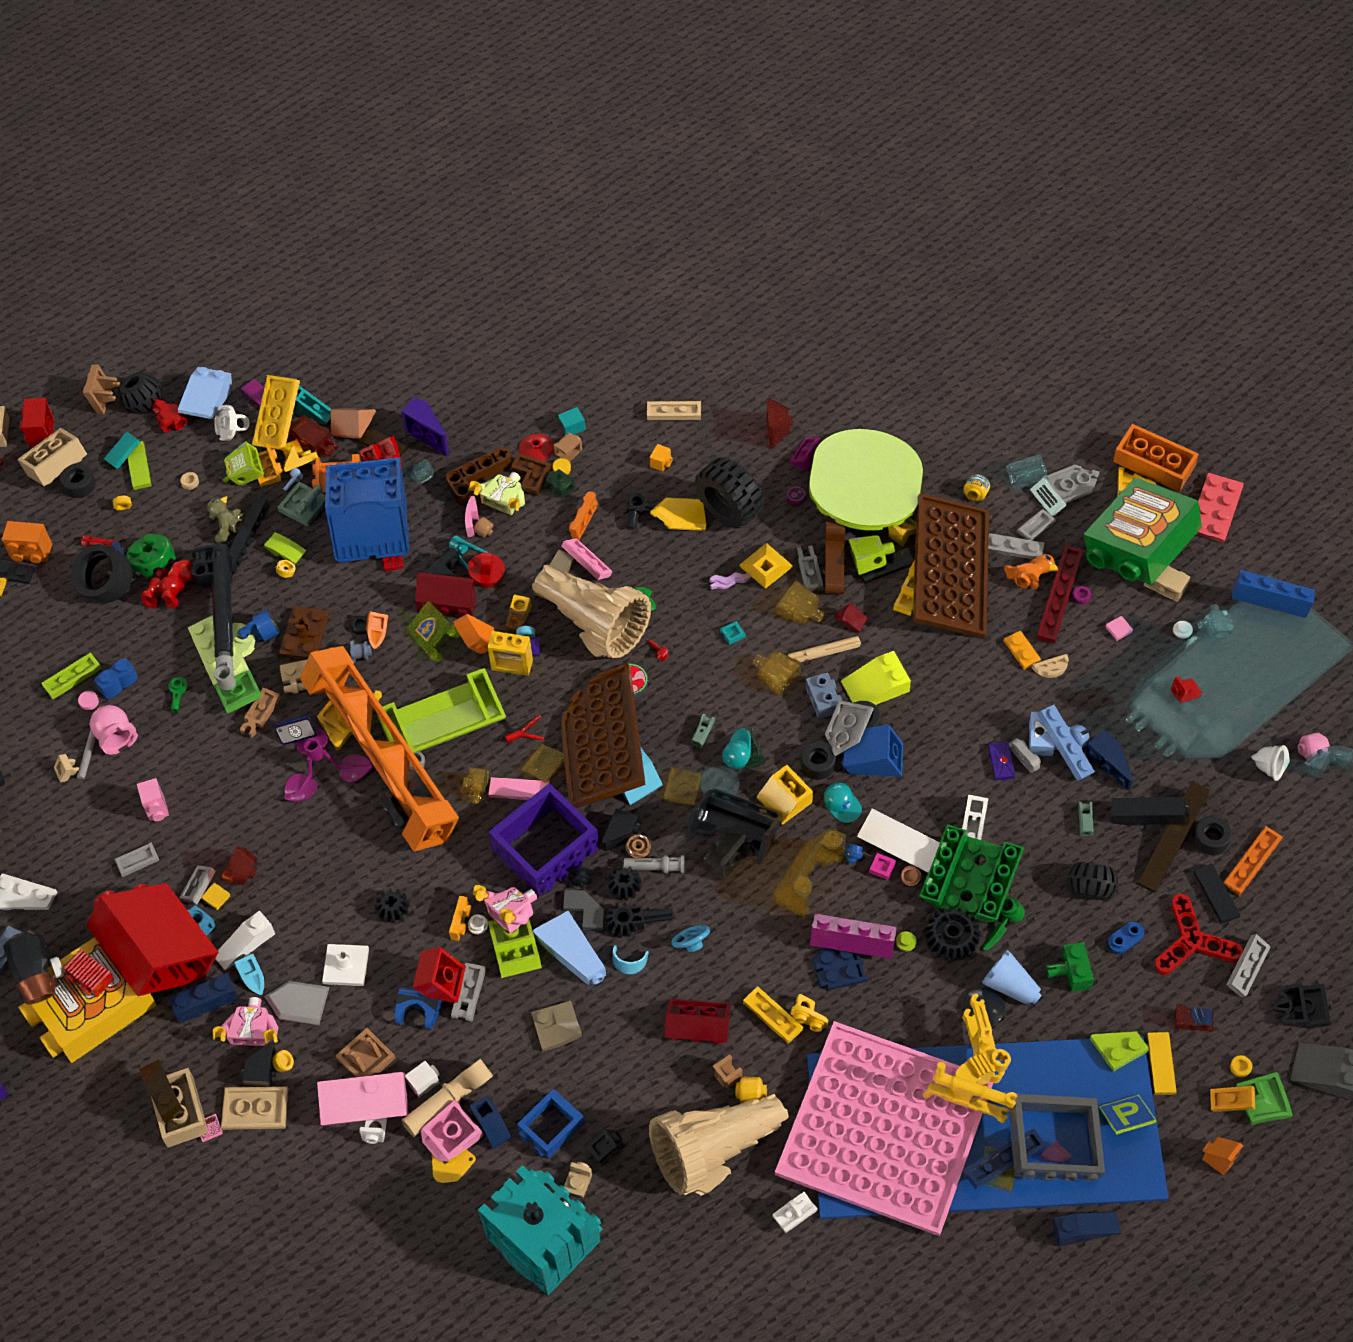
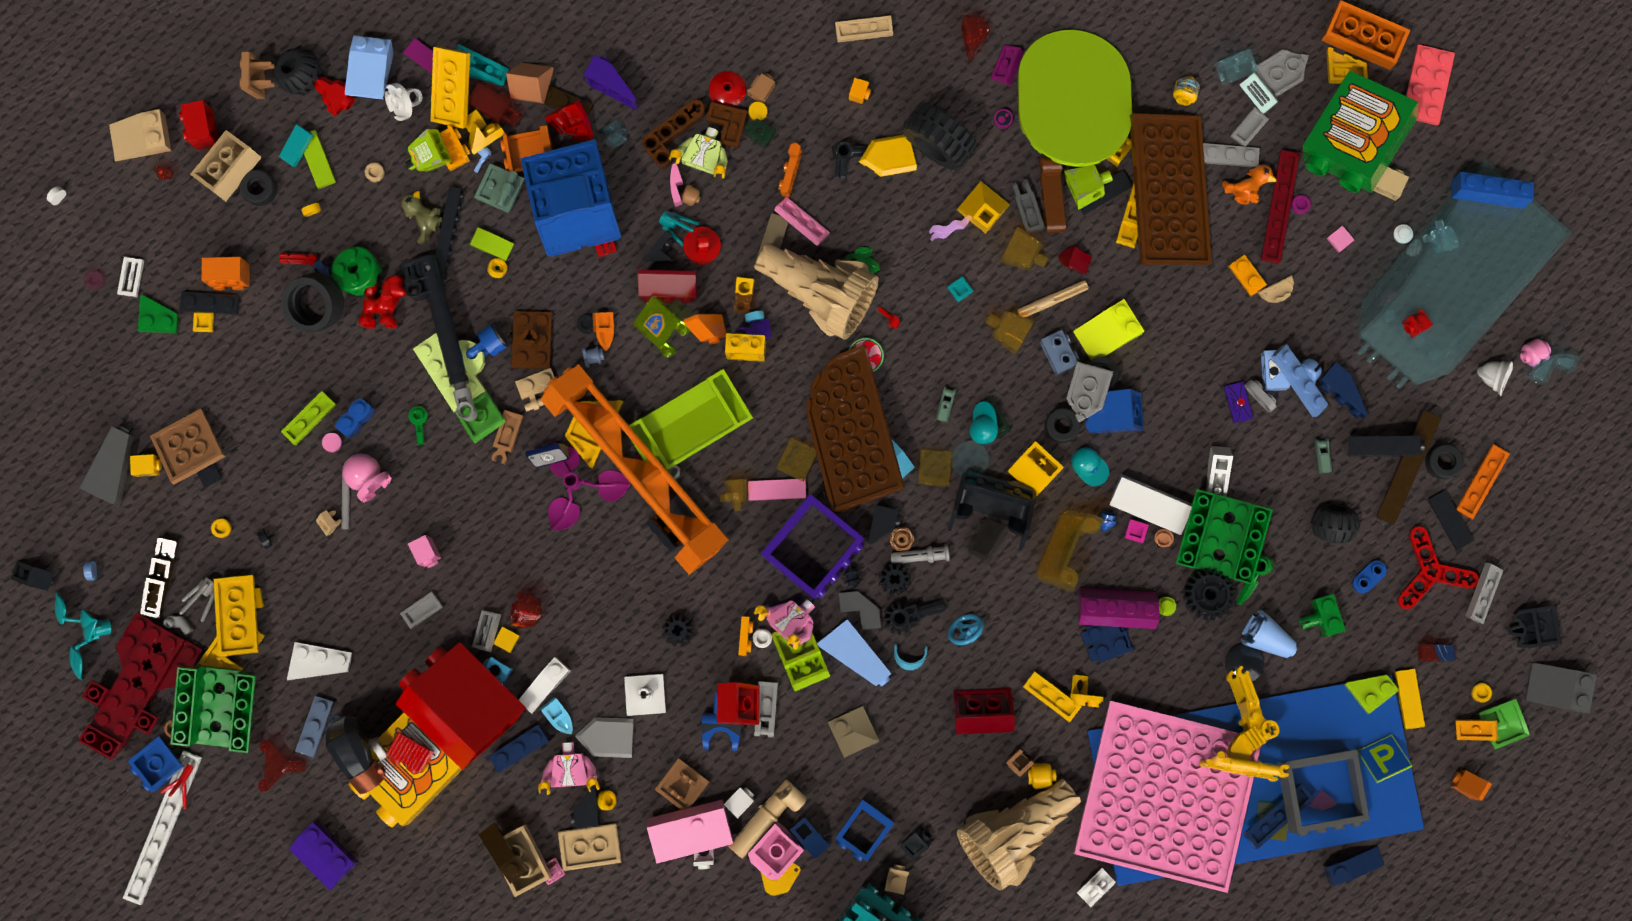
camera: 10 degrees left, 25 degrees up
(520, 733) = (770, 427): red plant -> none
(572, 421) = (760, 56): teal panel -> none

